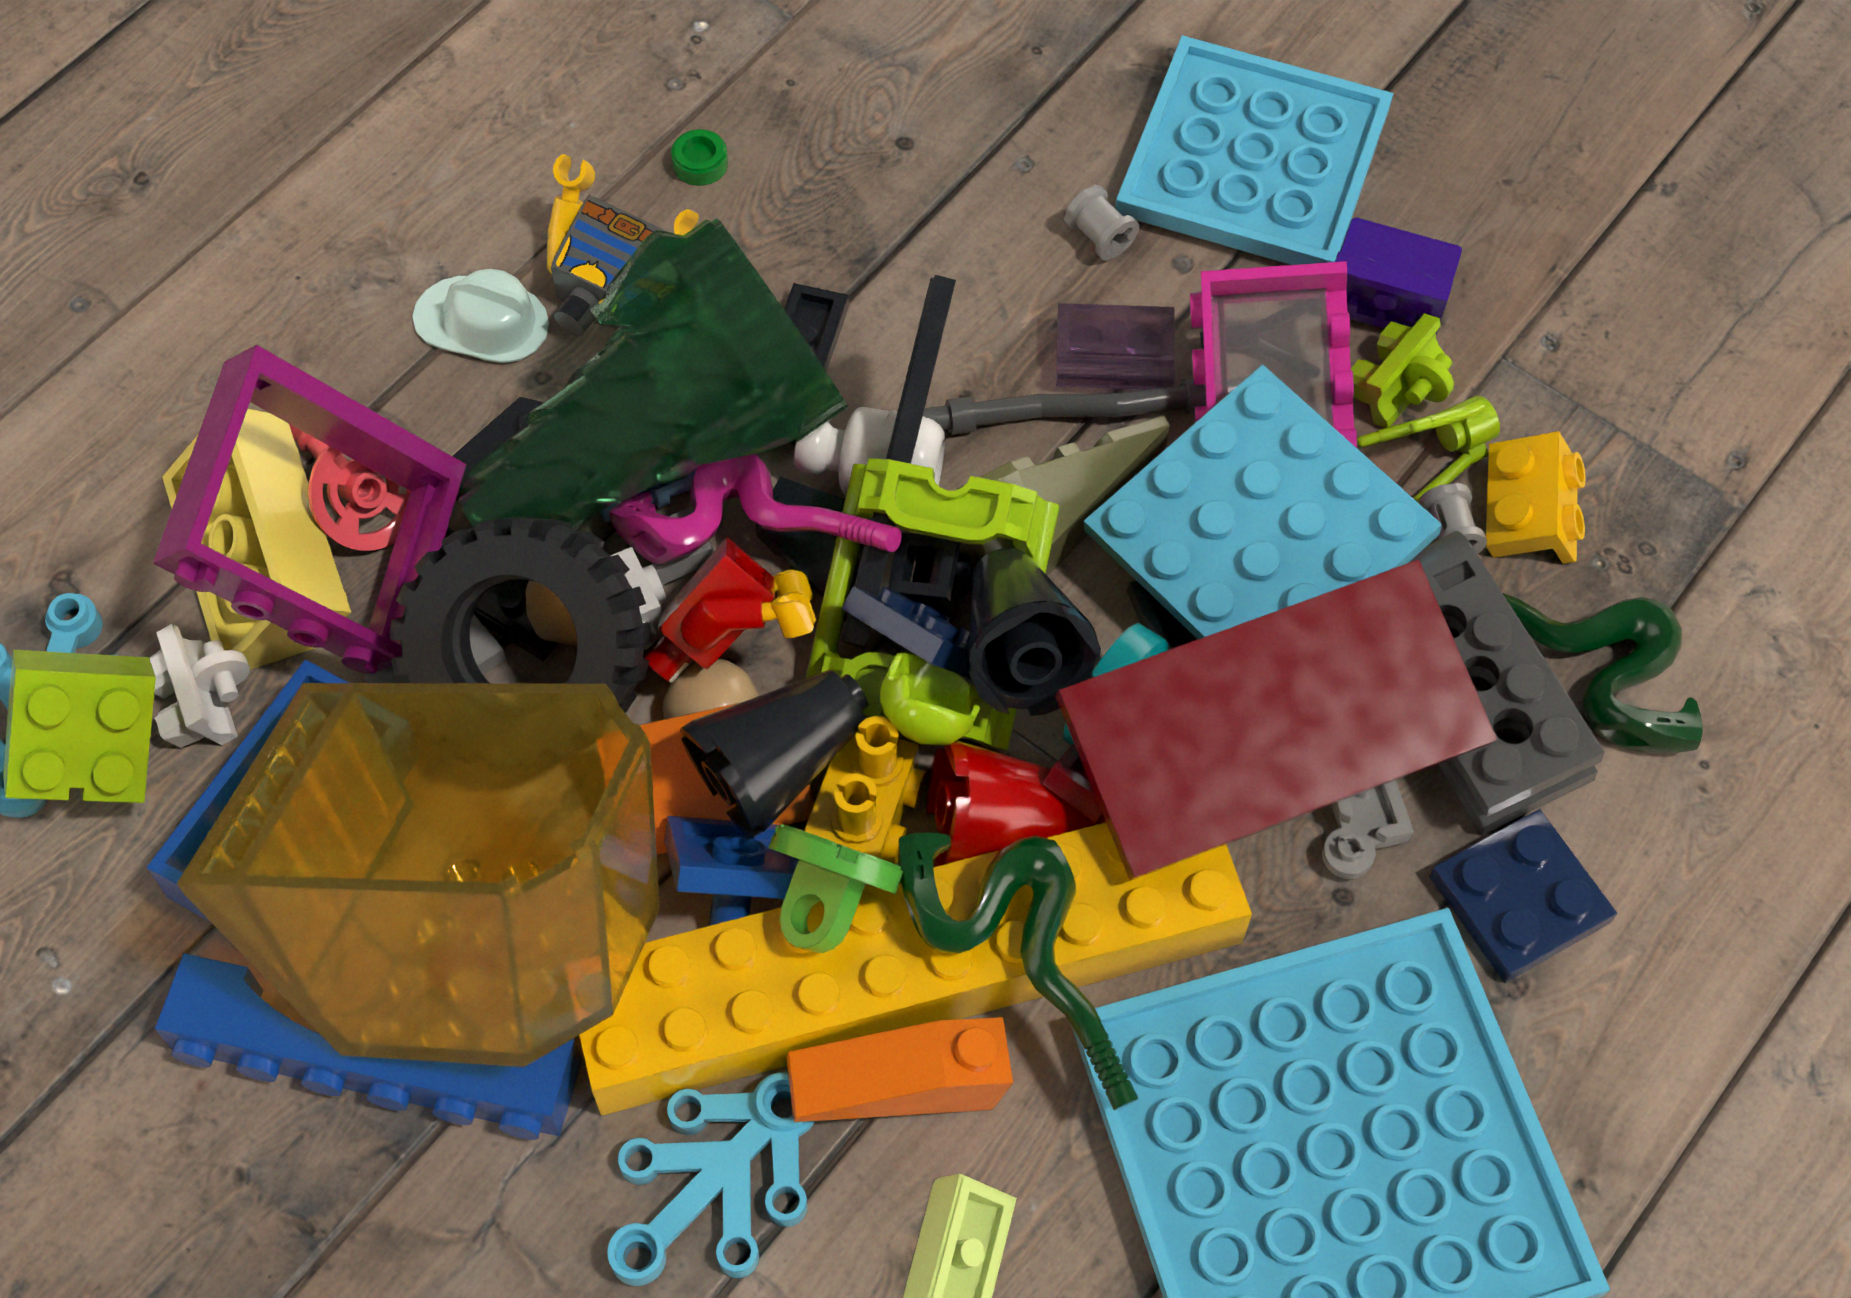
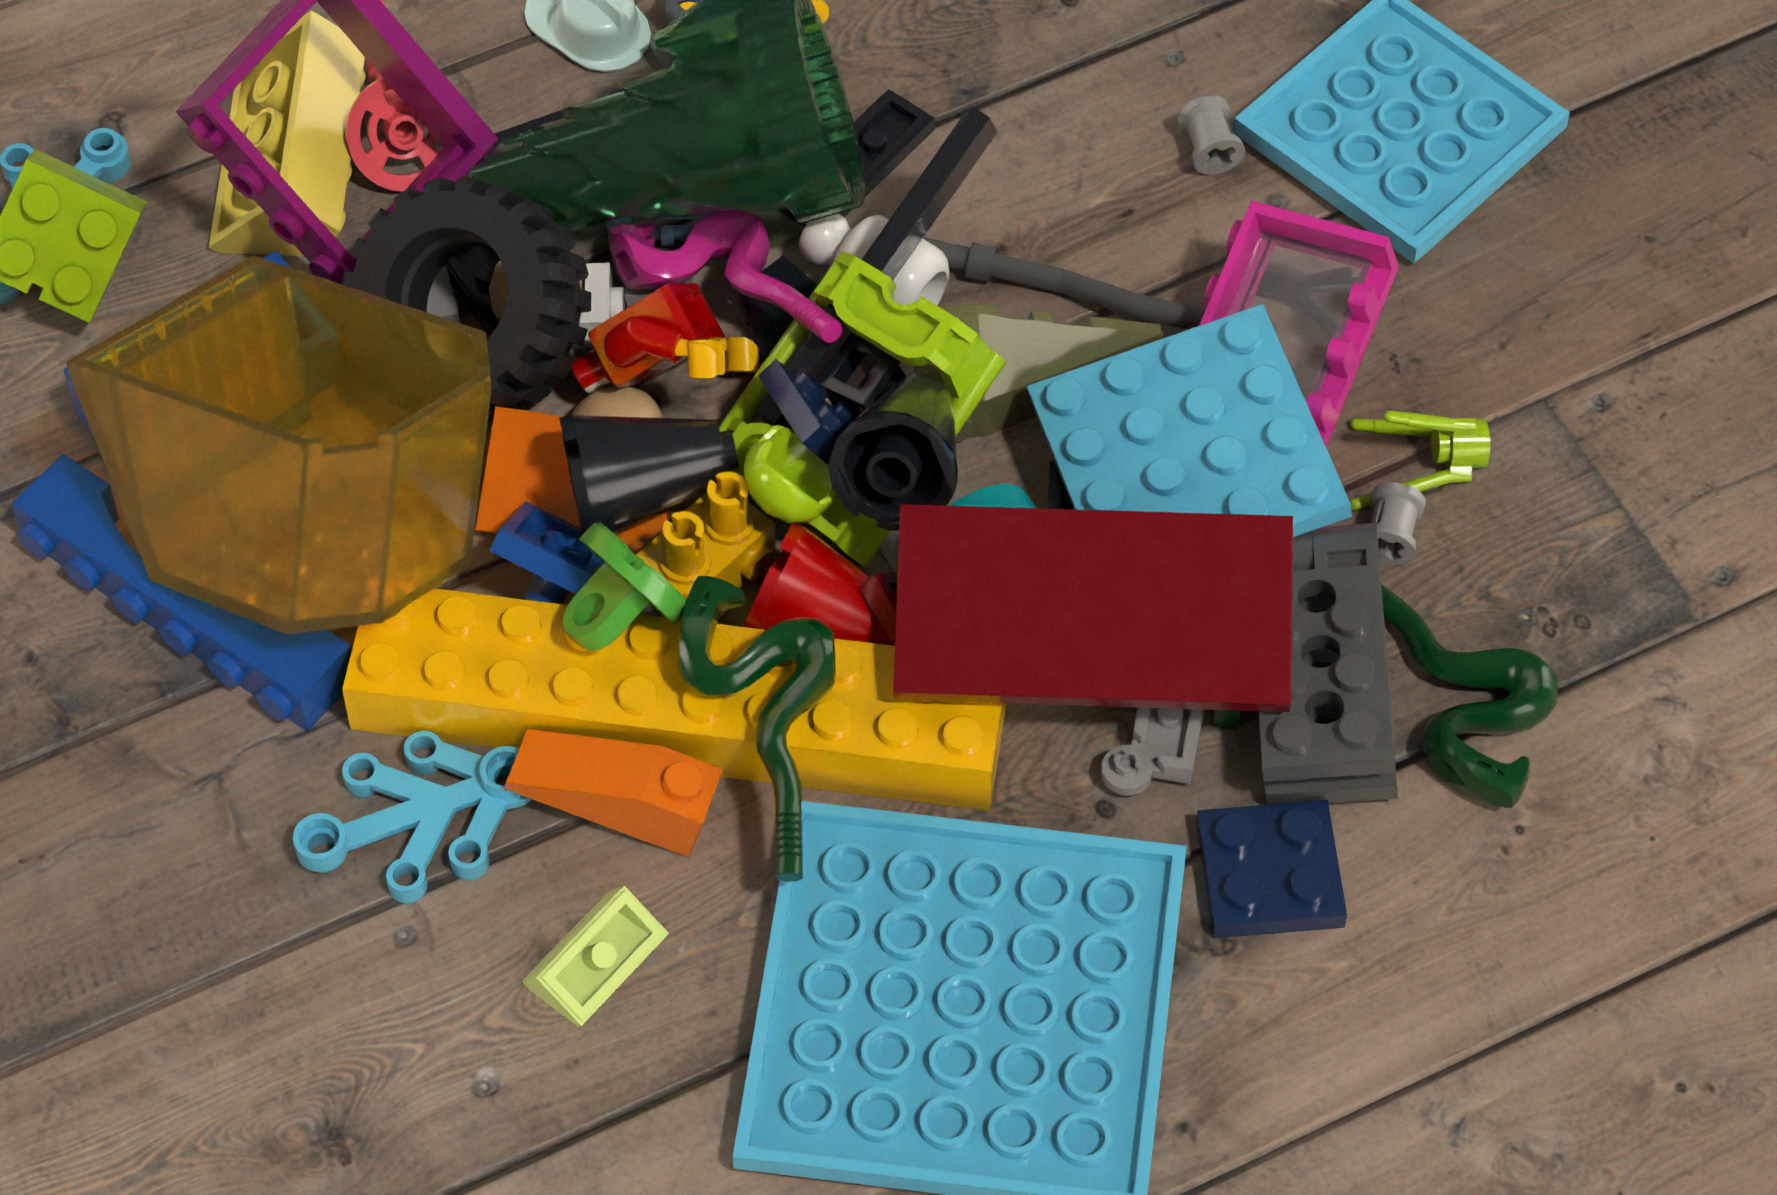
camera: 25 degrees right, 5 degrees down
(203, 682) = (184, 245): white hips -> none
(1115, 346) = (1159, 251): clear purple plate -> none
(1396, 274) = (1468, 285): dark purple bracket -> none
(1410, 372) = (1429, 372): lime hips -> none
(1534, 497) = (1490, 532): yellow bracket -> none

